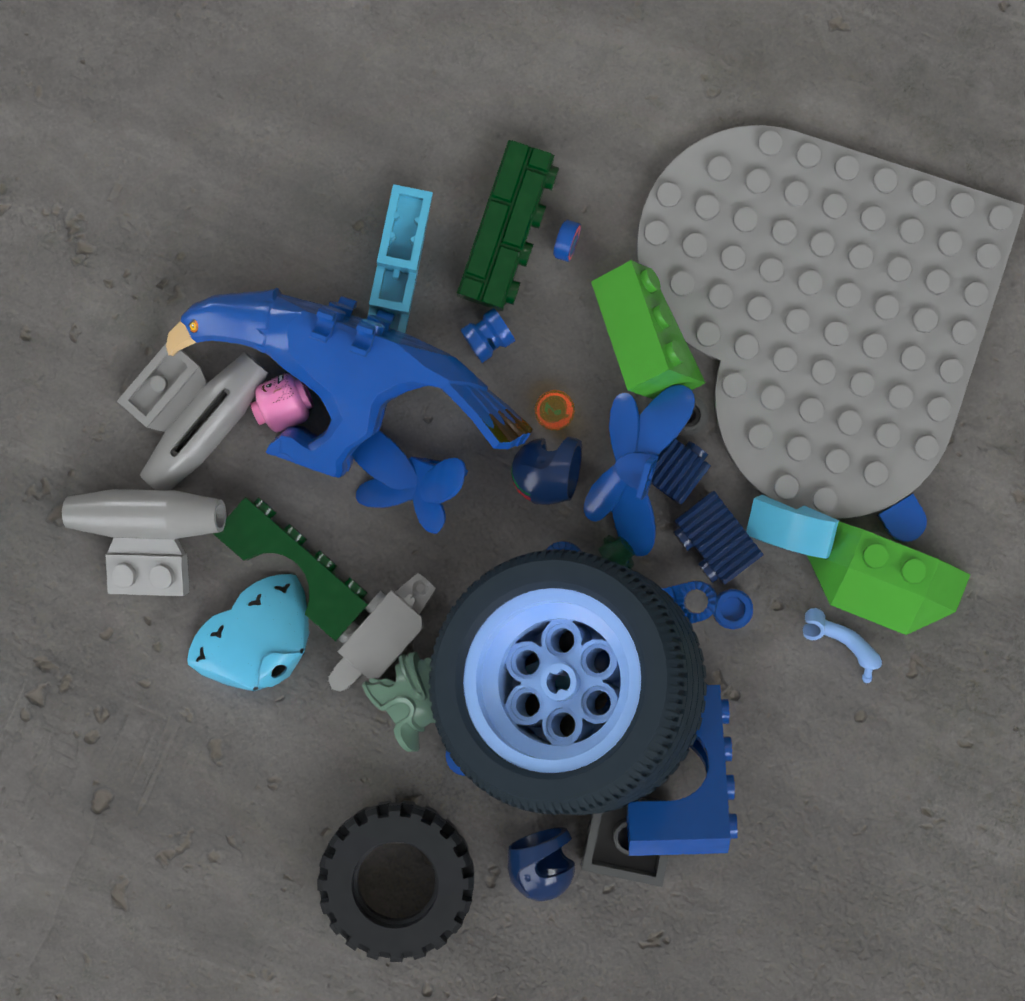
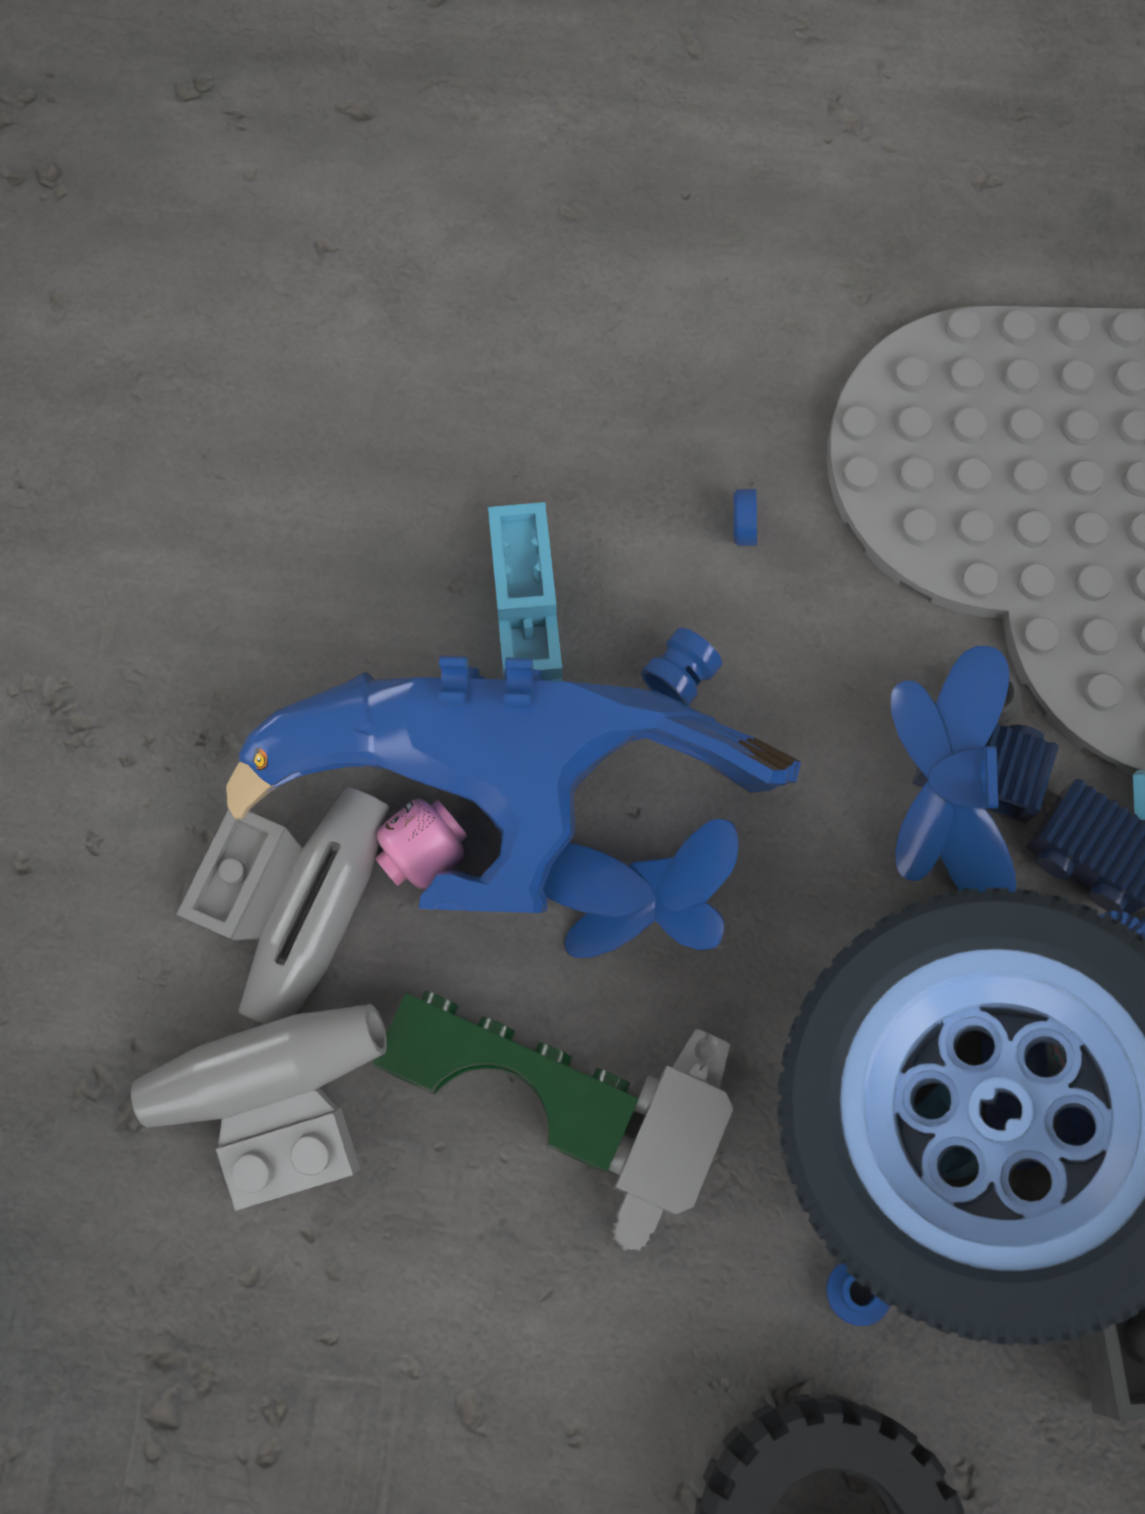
camera: 20 degrees left, 15 degrees down
(255, 636) = (478, 1209): medium azure piece -> none
(405, 699) = (754, 1224): sand green helmet -> none
(506, 225) = (658, 522): dark green brick -> none
(539, 865) = (1039, 1436): dark blue helmet -> none
(547, 475) = (829, 828): dark blue helmet -> none
(554, 410) = (809, 741): clear yellow tile -> none
(644, 331) = (896, 592): bright green wedge -> none

